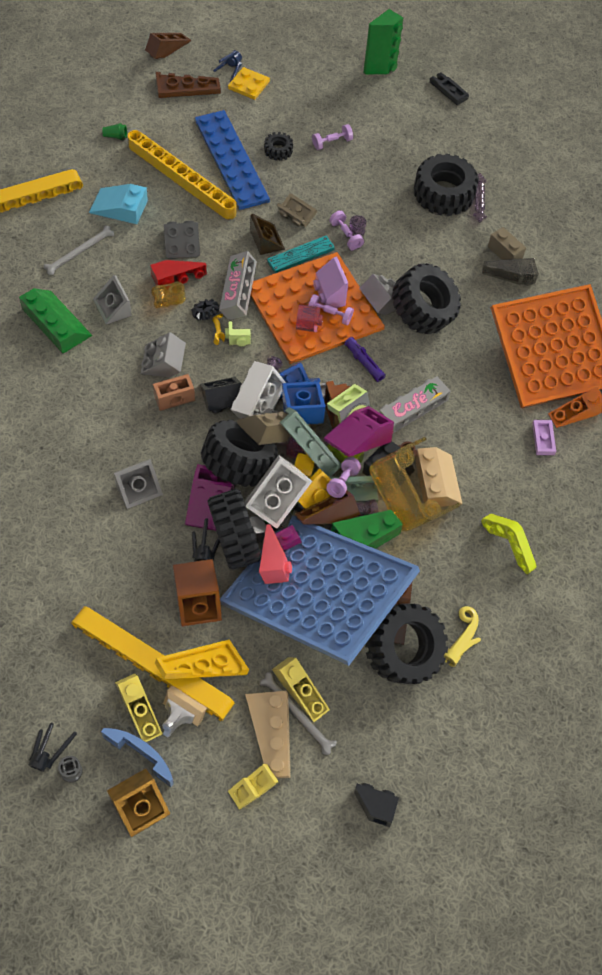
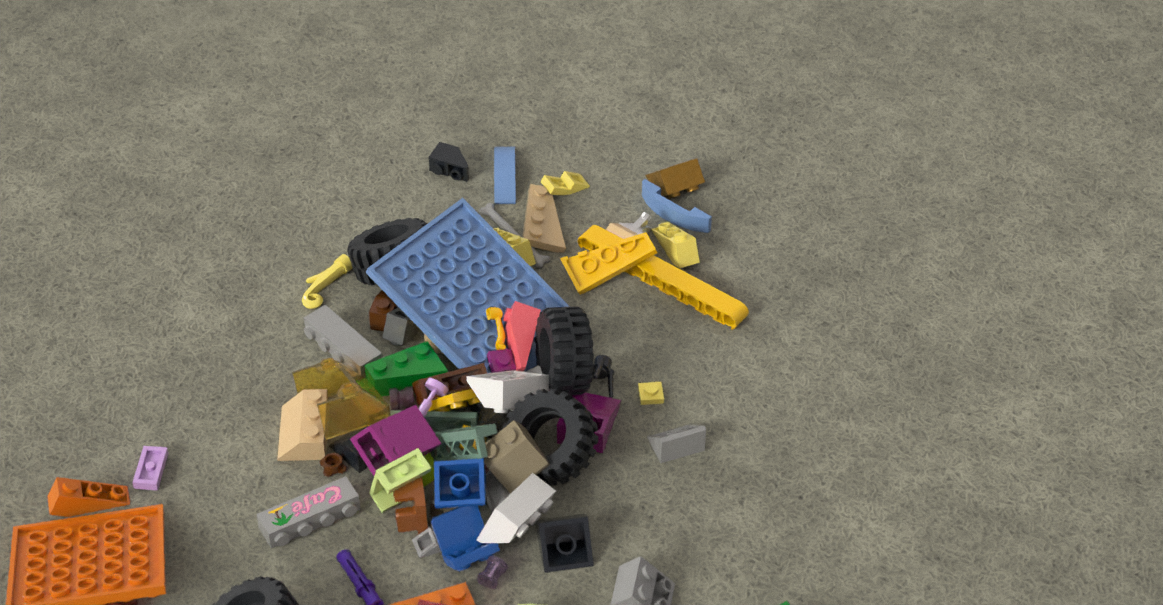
camera: 170 degrees left, 15 degrees down
(40, 758) = (769, 213): black plant -> none
(73, 772) = (740, 201): dark grey wheel -> none
(160, 534) = (650, 393): none -> light yellow plate
(174, 392) = (629, 537): nougat brick -> none
(197, 592) = (612, 326): dark orange slope -> none
(299, 568) = (496, 314): none -> yellow piece
(318, 802) = (504, 175): none -> medium blue slope
(432, 565) = (340, 339): none -> light grey brick
(515, 534) = (237, 338): neon yellow beam -> none

